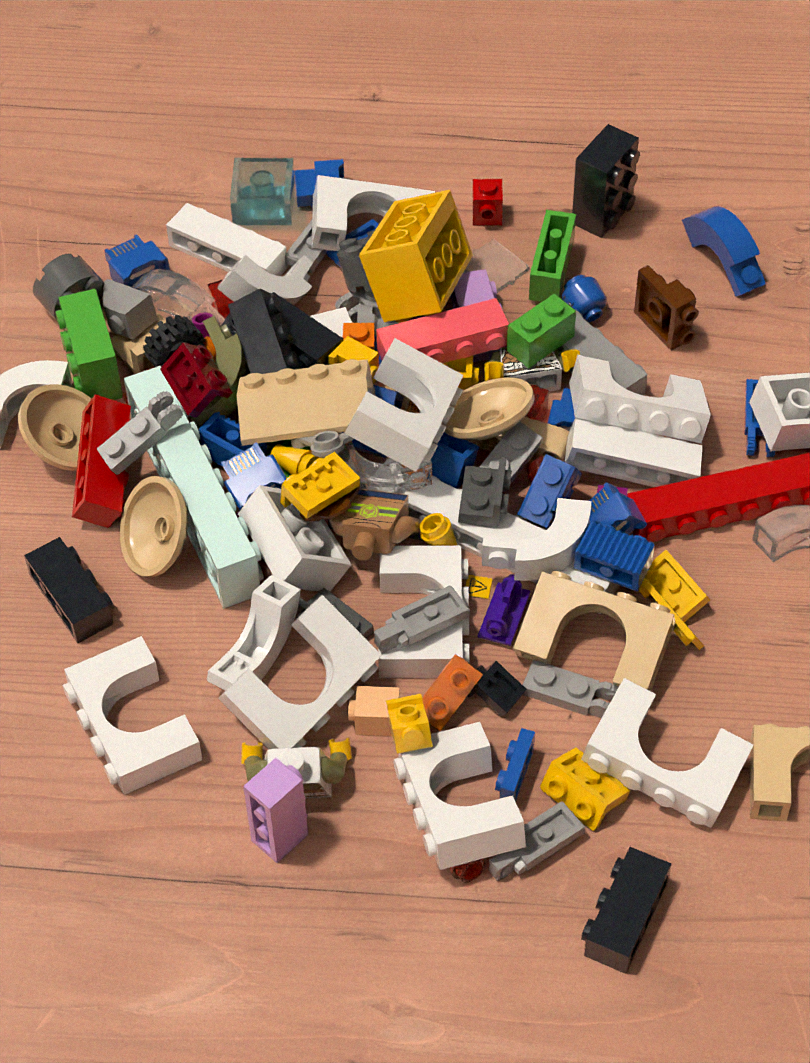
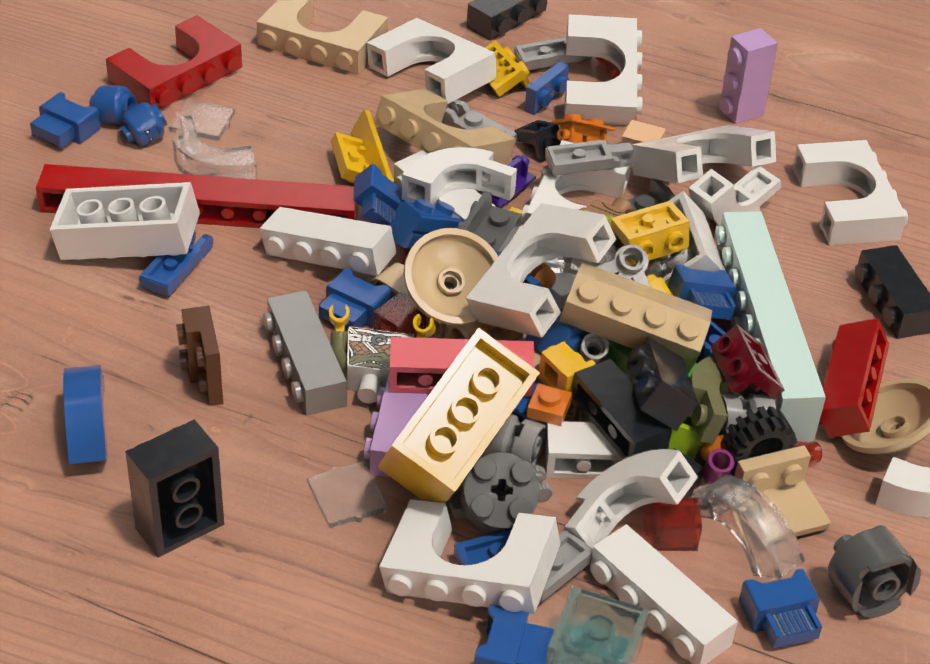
camera: 165 degrees left, 10 degrees down
(90, 345) = (855, 480): bright green brick -> none
(127, 309) = (814, 530): light grey slope -> none
(140, 432) = (816, 333): light grey hinge -> none
(153, 526) = (808, 294): tan dish -> none
(311, 762) = (720, 106): torso -> none
(409, 723) = (626, 99): yellow brick -> none
(487, 202) = (317, 551): red brick -> none
(541, 330) = (355, 339): bright green brick -> none
(552, 255) = (283, 452): bright green brick -> none
(585, 296) = (274, 408): blue head -> none
(598, 398) = (268, 240): white arch -> none
(614, 555) = (396, 148): blue brick -> none

